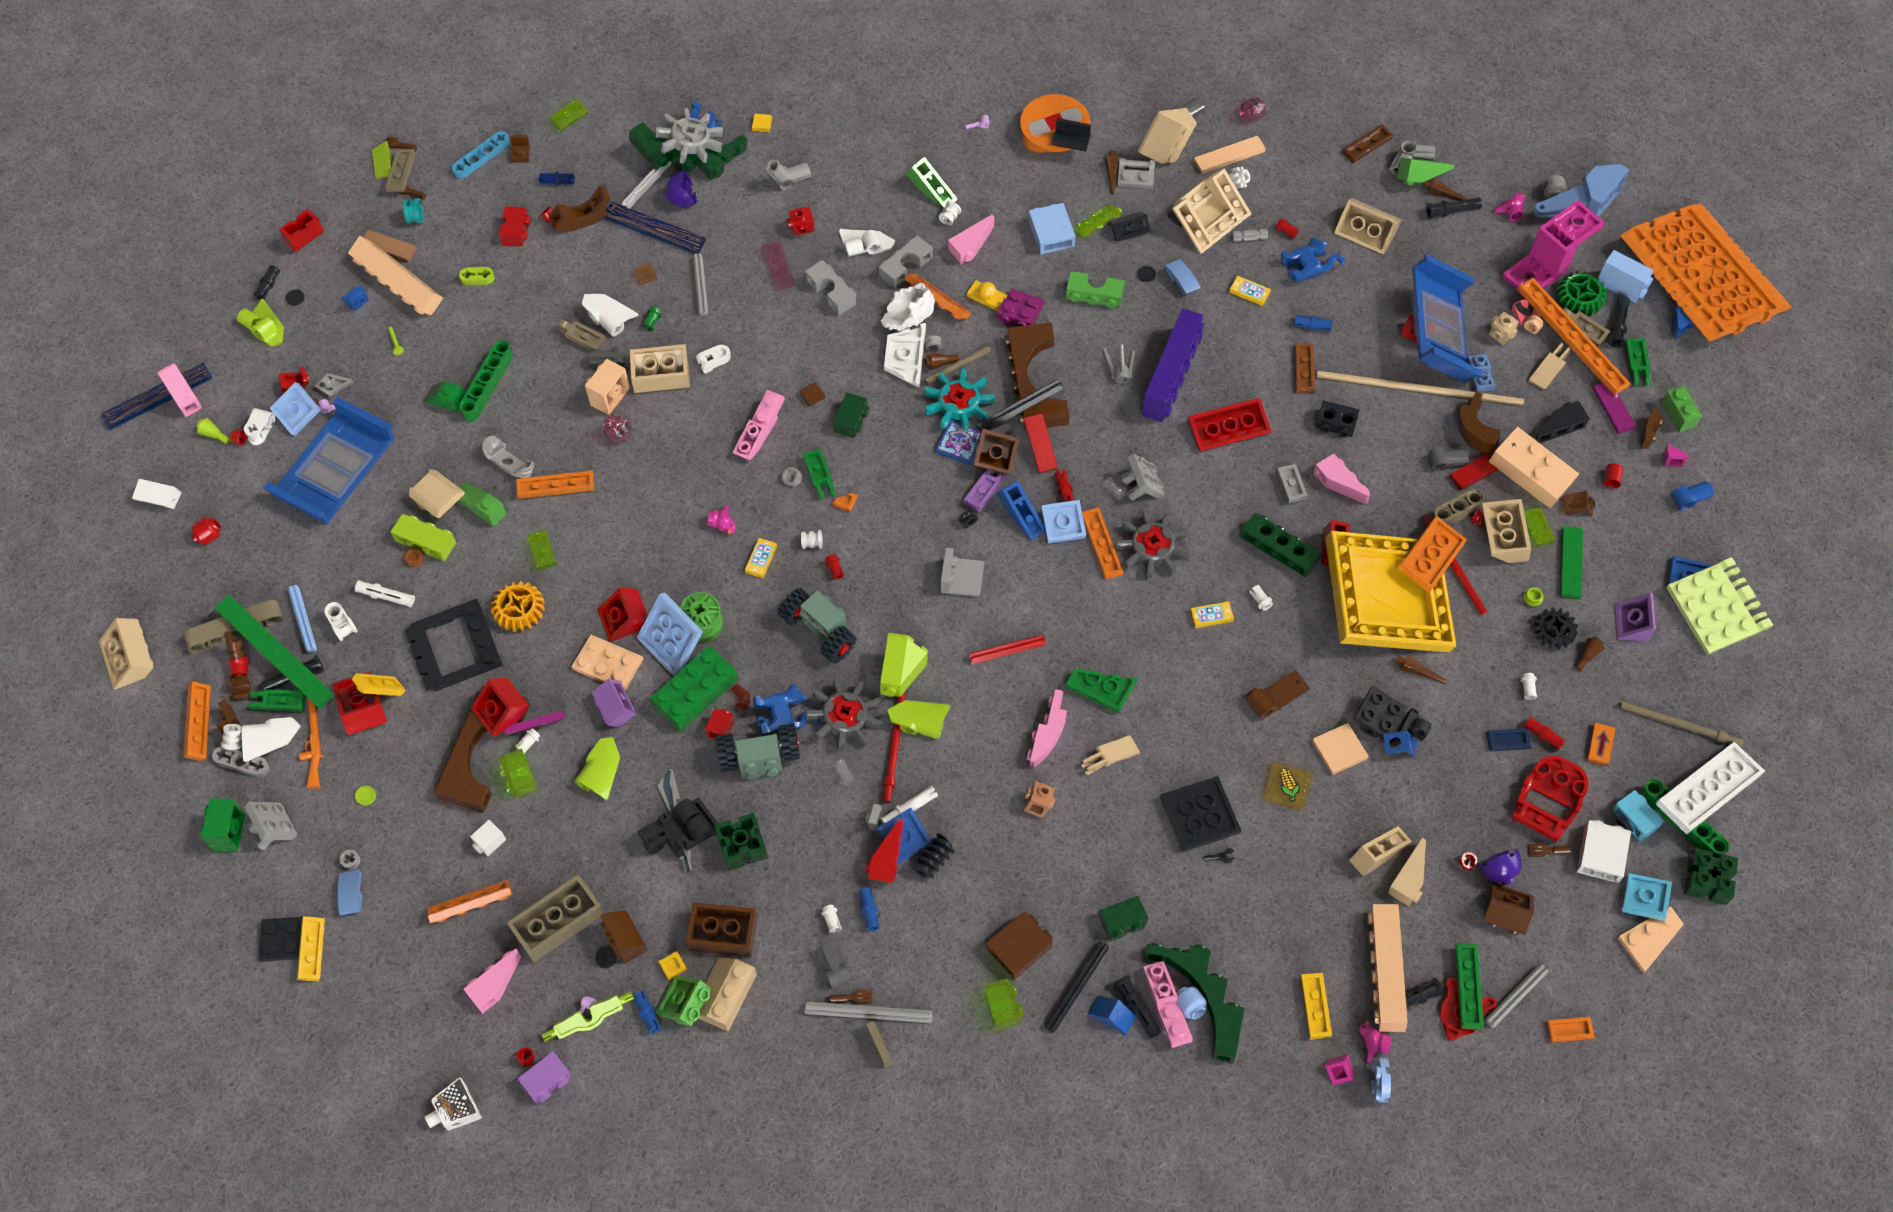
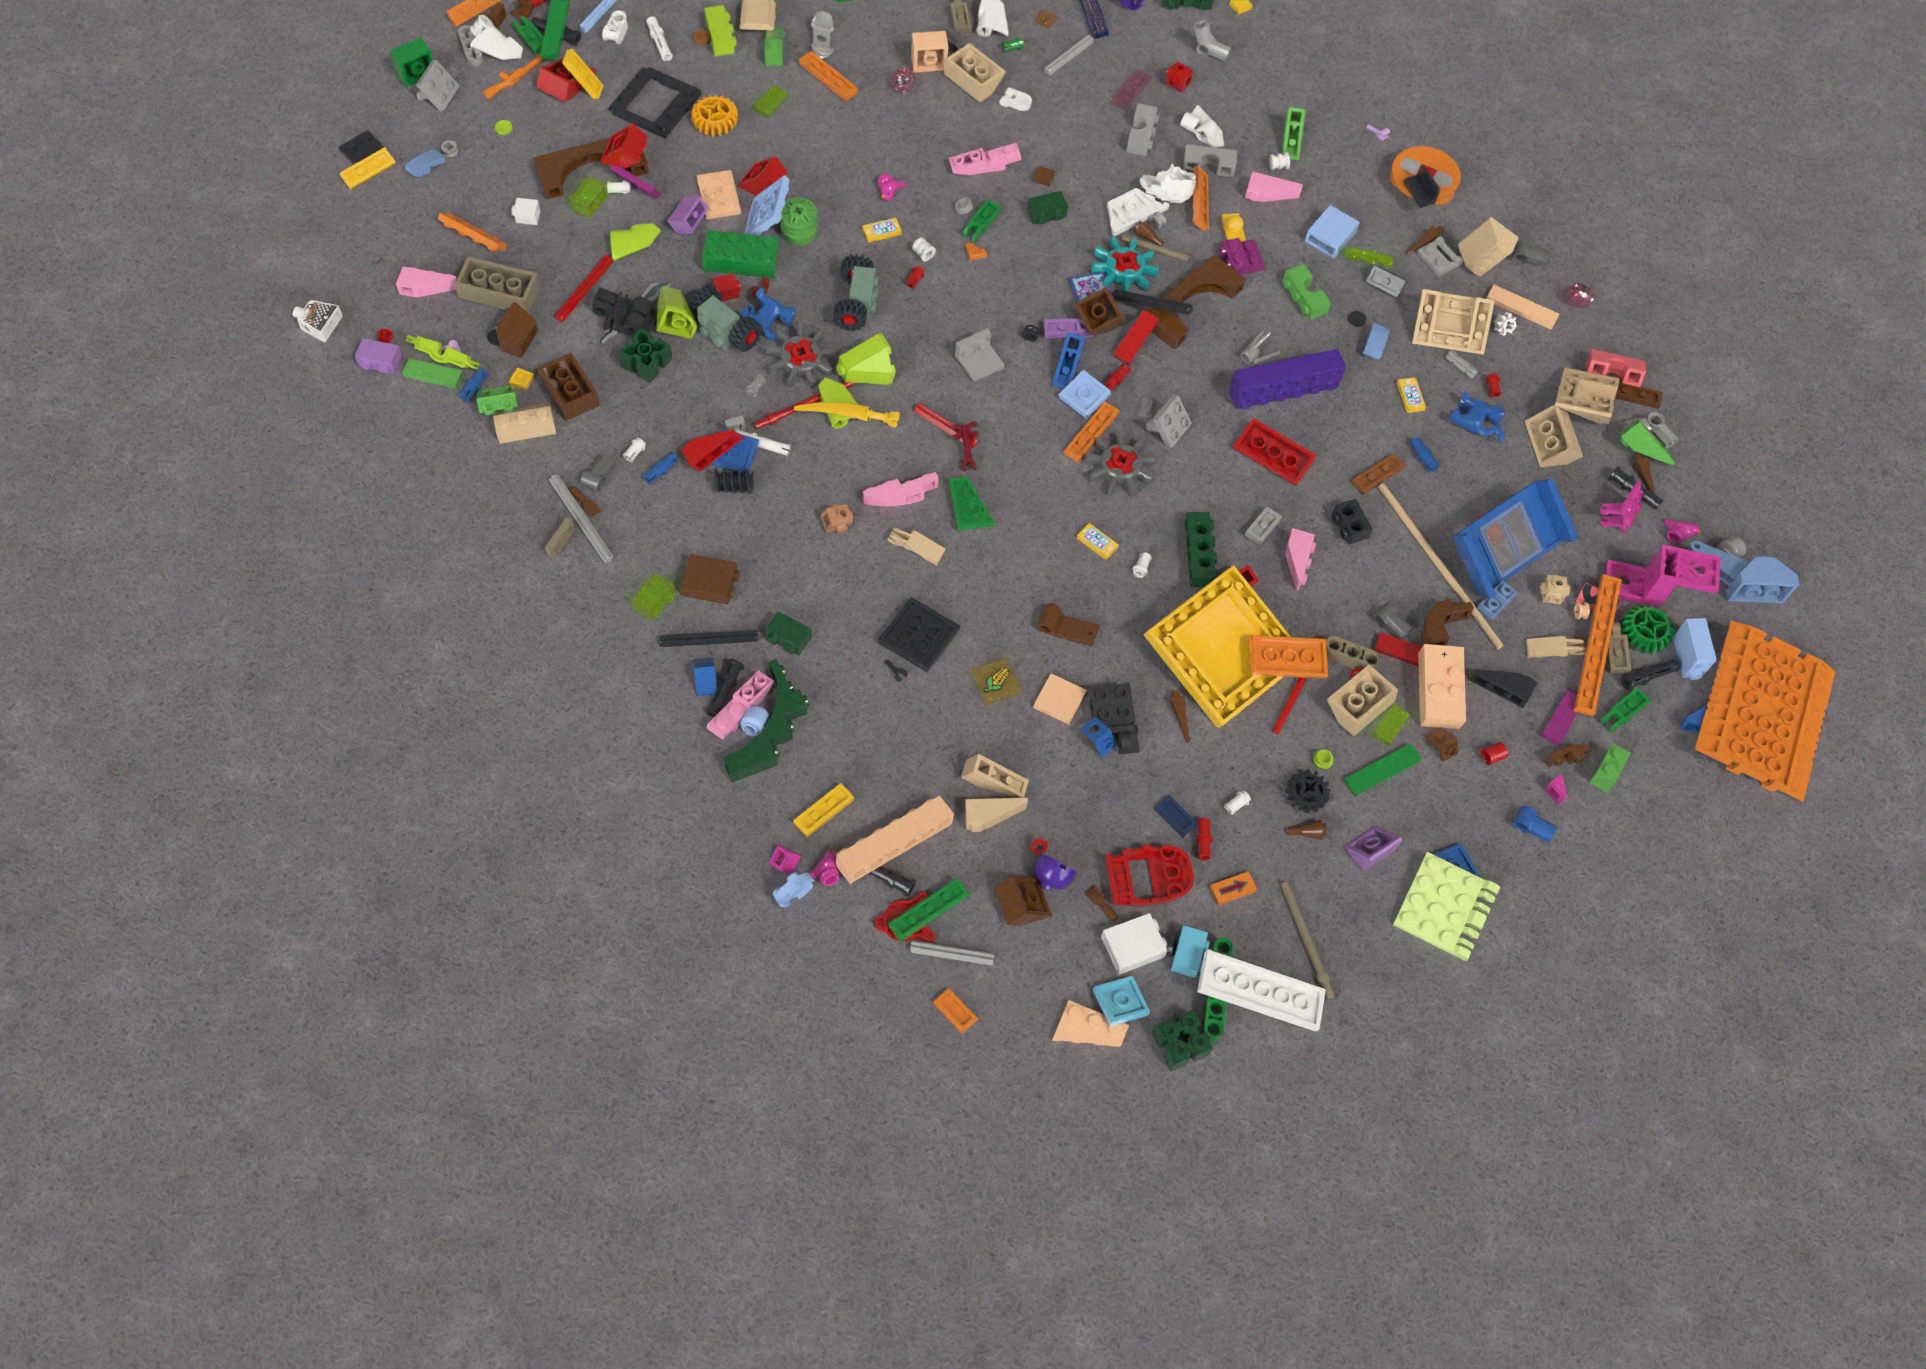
camera: 45 degrees right, 0 degrees up
(601, 1041) = (432, 373): none -> bright green tile
(616, 845) = (583, 288): none -> red axle
(714, 787) = (674, 314): none -> lime slope
(938, 712) = (851, 410): none -> yellow sword
(1031, 638) = (964, 432): none -> dark red bar
(1347, 129) = (1628, 369): none -> coral arch
(1350, 173) = (1587, 394): none -> tan slope
(1473, 233) = (1625, 510): none -> dark pink plate

